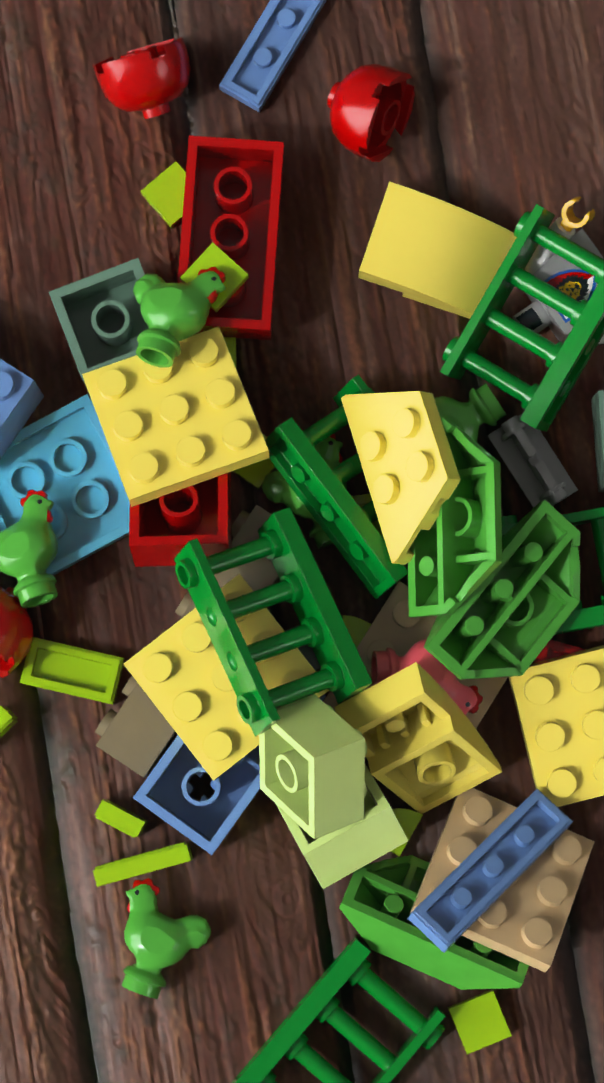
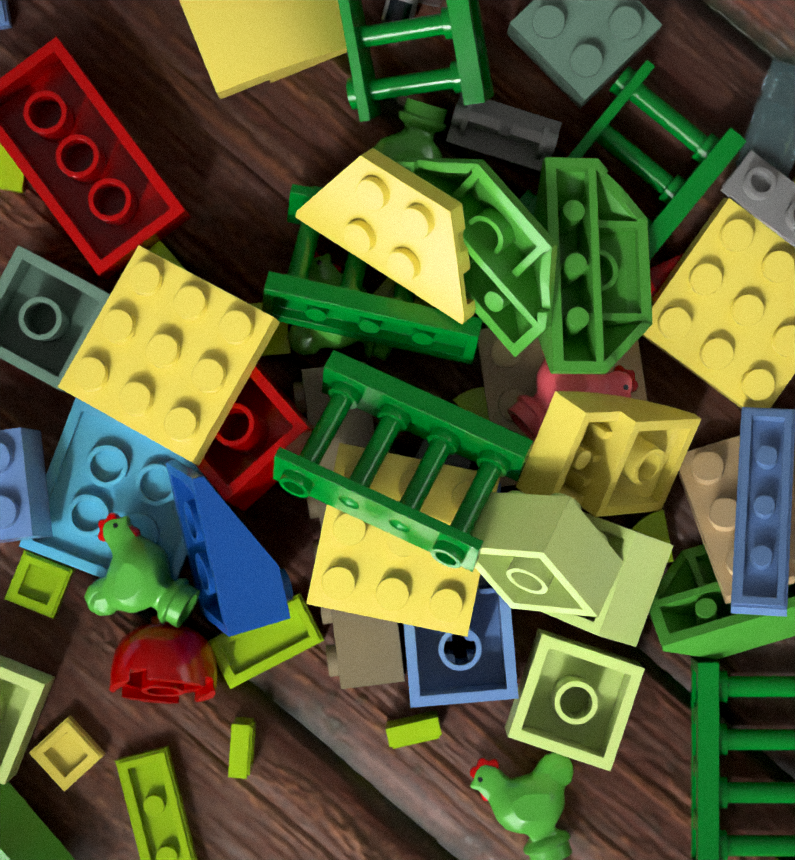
camera: 40 degrees left, 5 degrees up
(93, 593) = (228, 565): none -> blue slope
(142, 863) = (464, 751): lime tile -> none
(173, 313) = (90, 267): bright green animal -> none
(215, 257) = (98, 206): lime tile -> none
(249, 891) = (574, 699): none -> yellowish green brick

